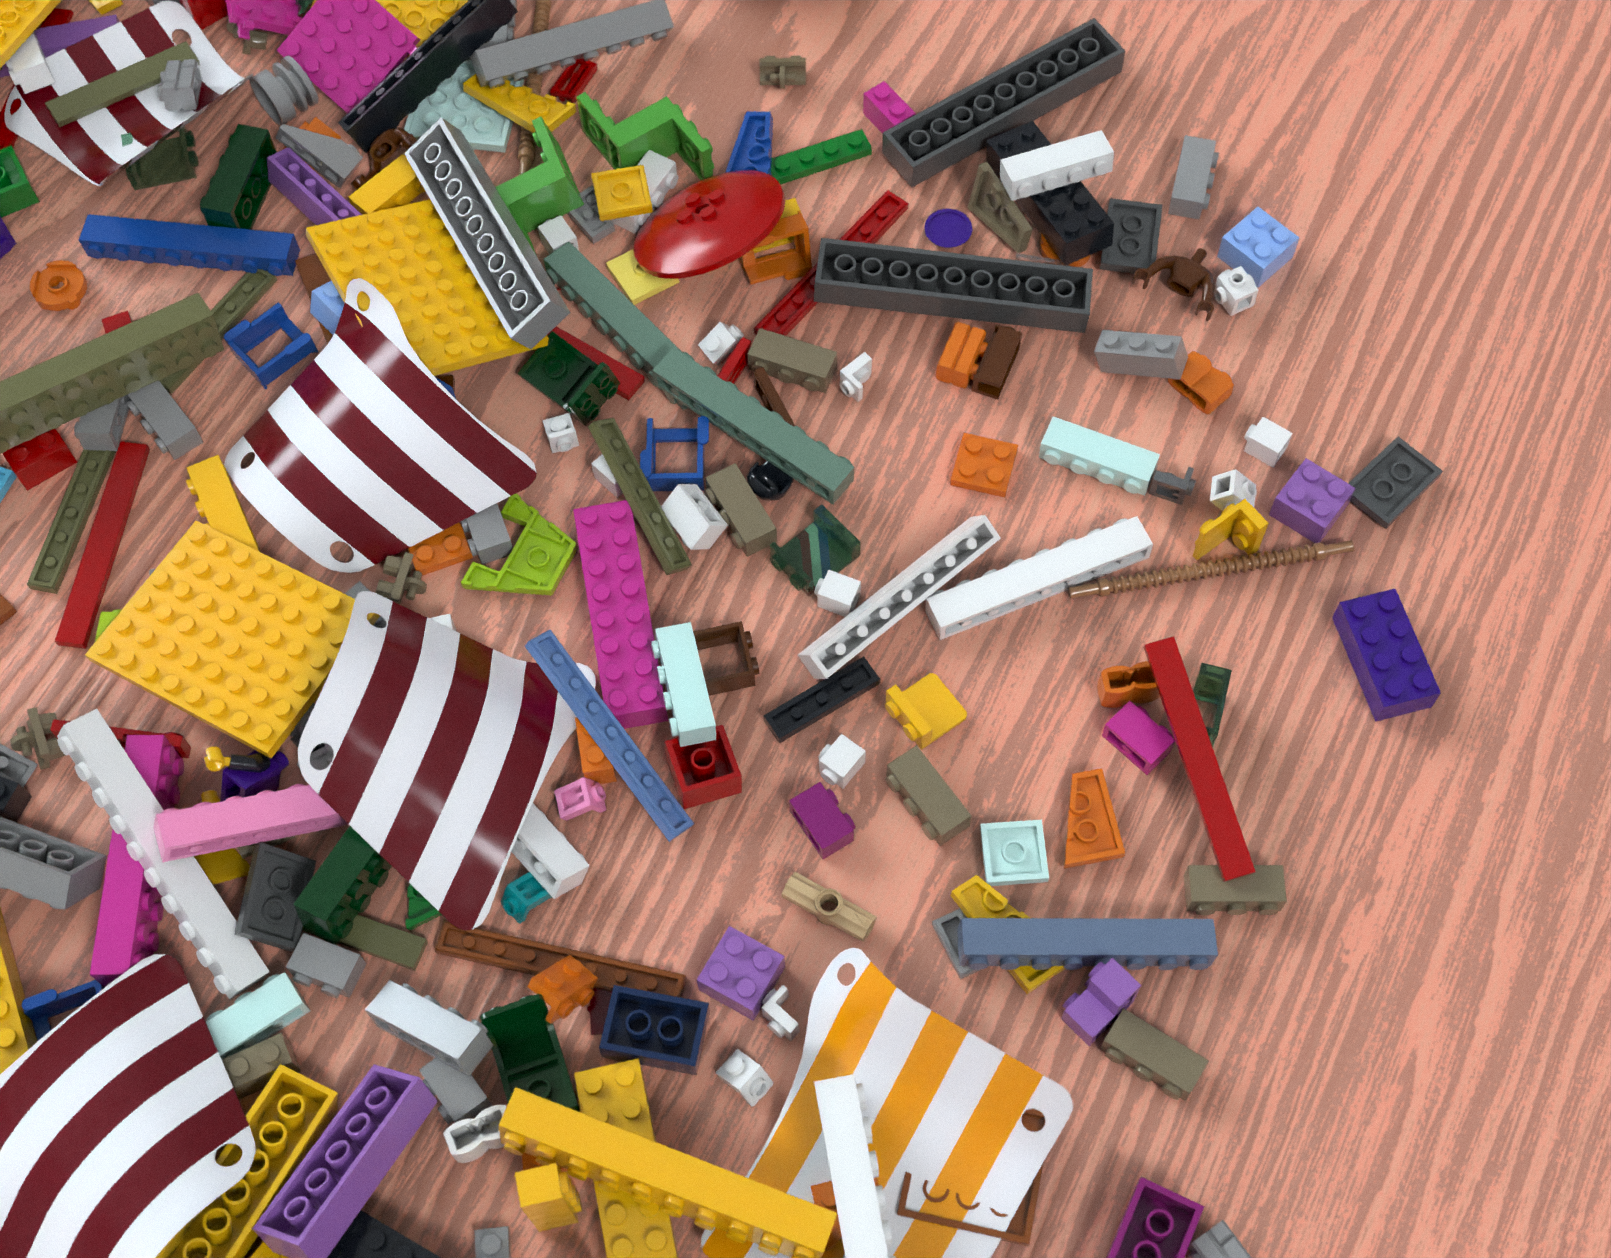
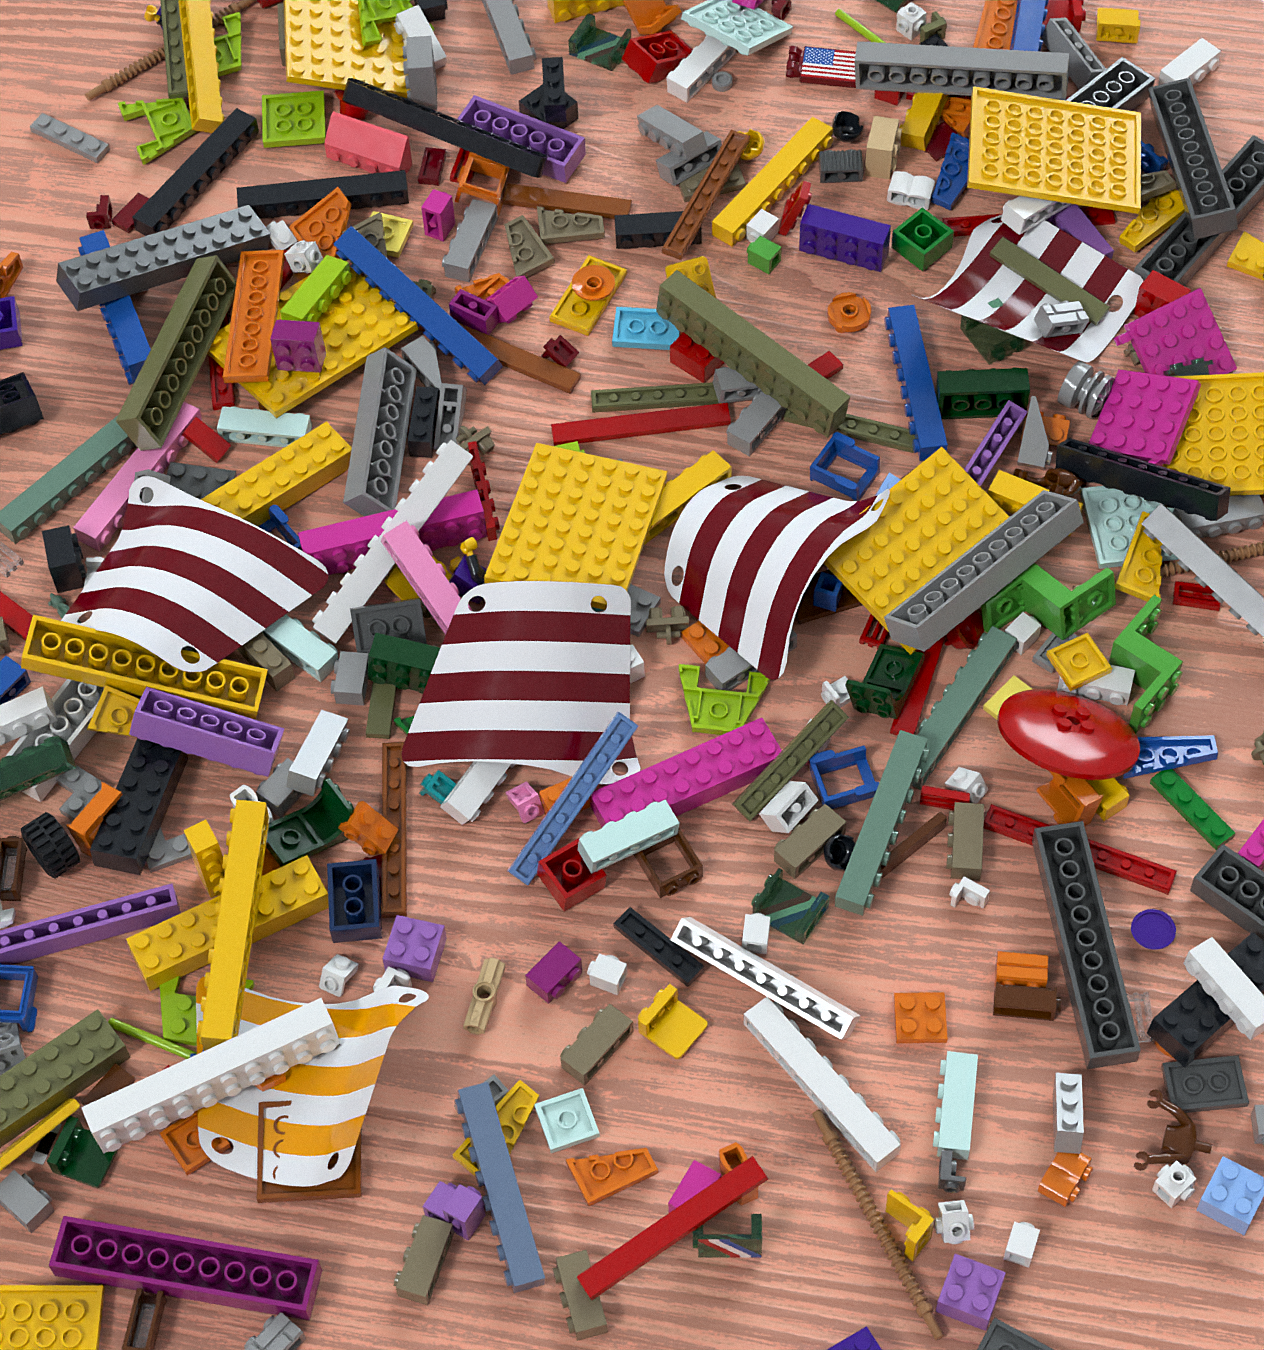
camera: 75 degrees right, 5 degrees down
(491, 386) = (872, 641): none -> red tile
(994, 207) = (1177, 969): dark tan wing -> none

